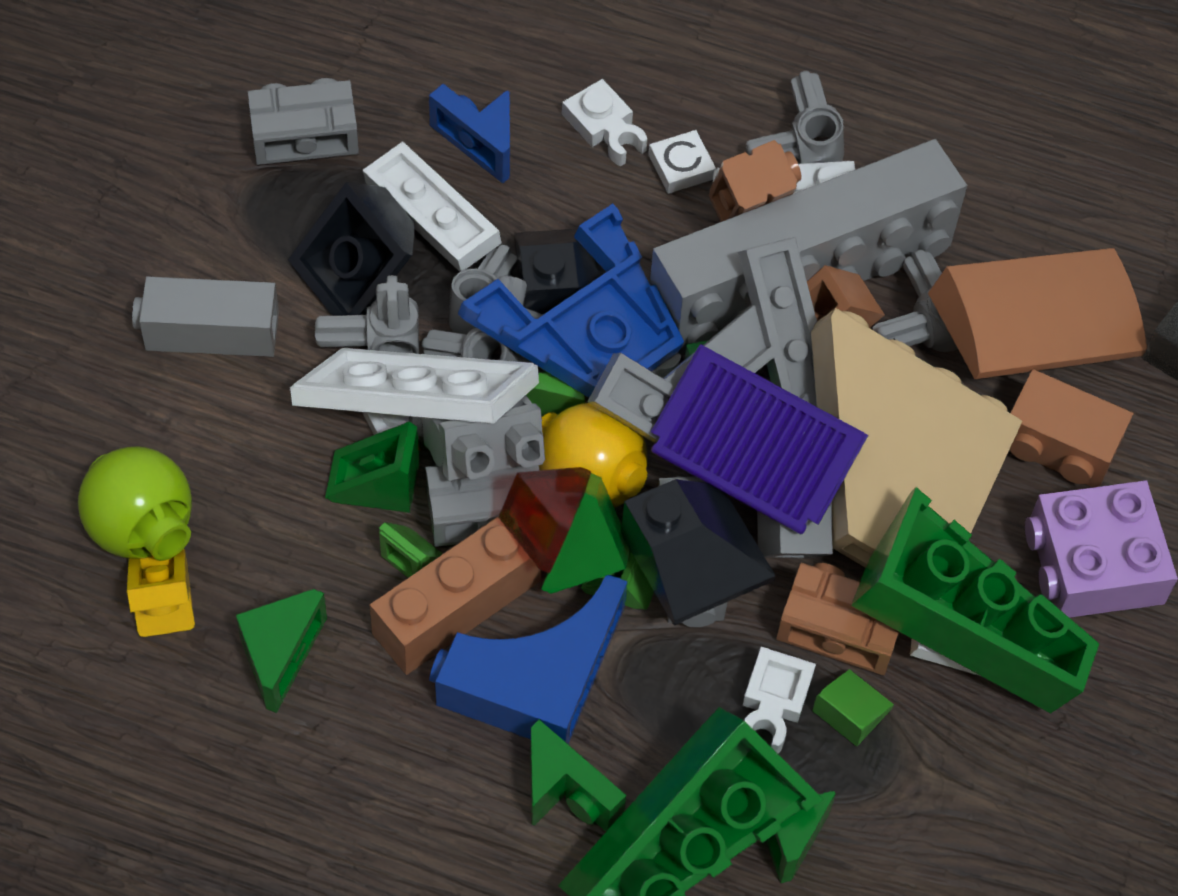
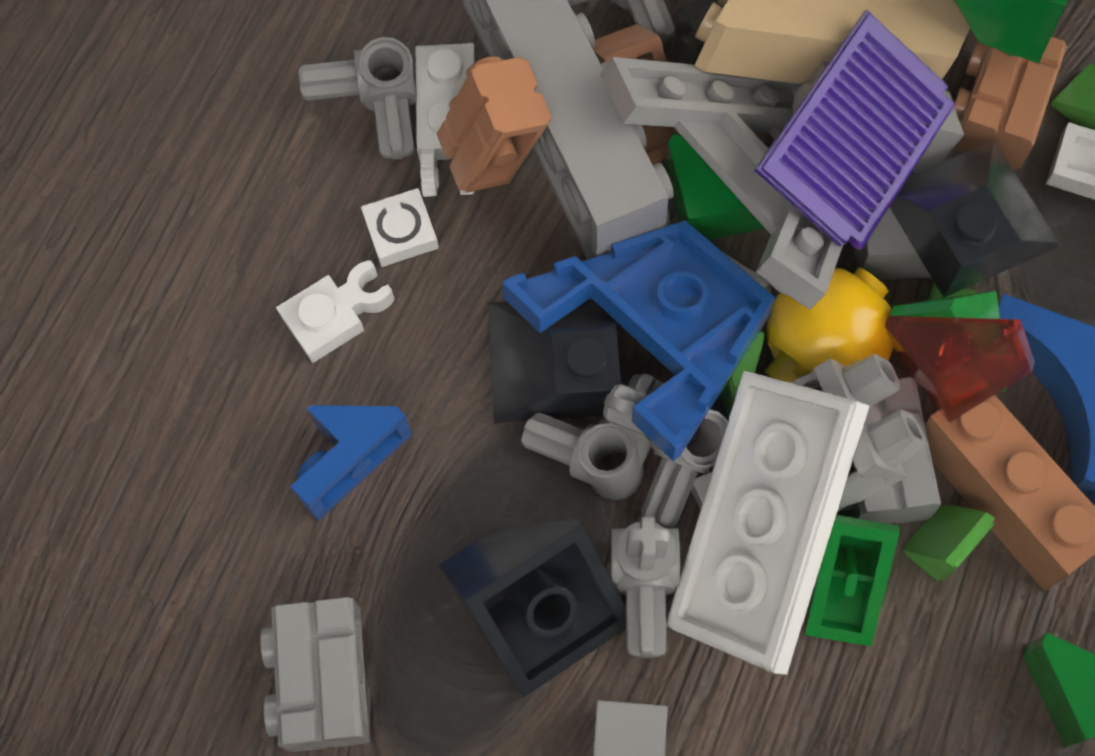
camera: 80 degrees left, 10 degrees up
(434, 206) = (463, 510): white plate -> none

